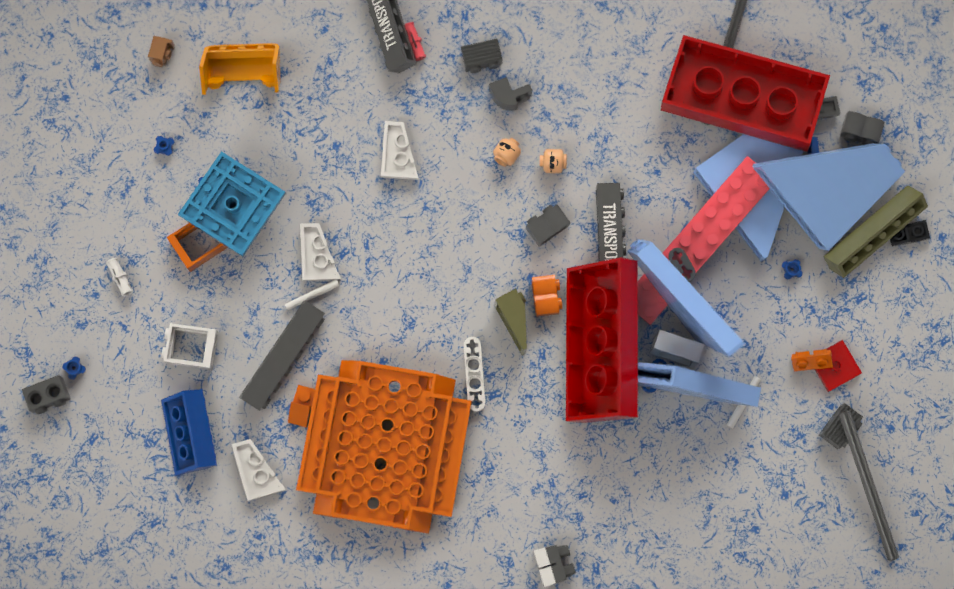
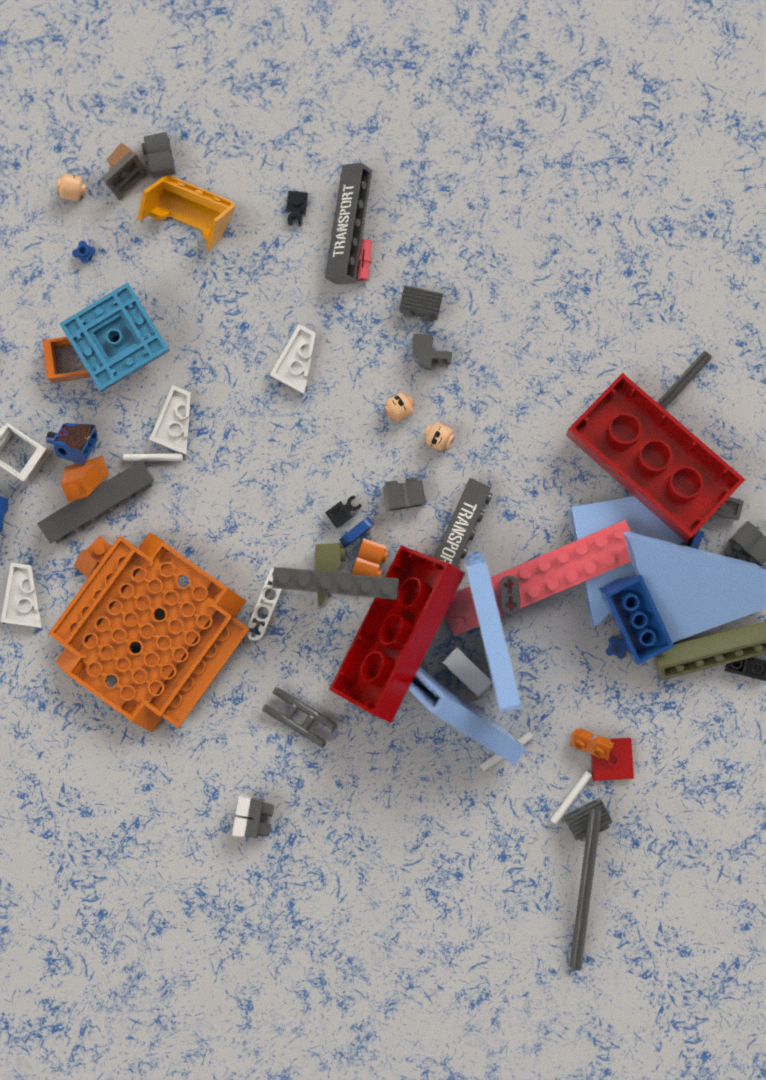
camera: 35 degrees right, 5 degrees up
(126, 95) = (70, 187): none -> light nougat head
(170, 62) = (124, 175): none -> dark grey plate
(191, 32) = (159, 155): none -> dark grey brick
(236, 312) = (74, 441): none -> torso
(262, 338) = (82, 480): none -> orange slope
(332, 21) = (296, 204): none -> black plate
(500, 265) = (340, 513): none -> black plate
(522, 275) = (356, 532): none -> blue beam
(529, 322) = (335, 583): none -> dark grey brick
(542, 449) = (304, 728): none -> dark grey piece
(797, 234) = (636, 618): none -> blue slope
(817, 415) = (571, 797): none -> white bar

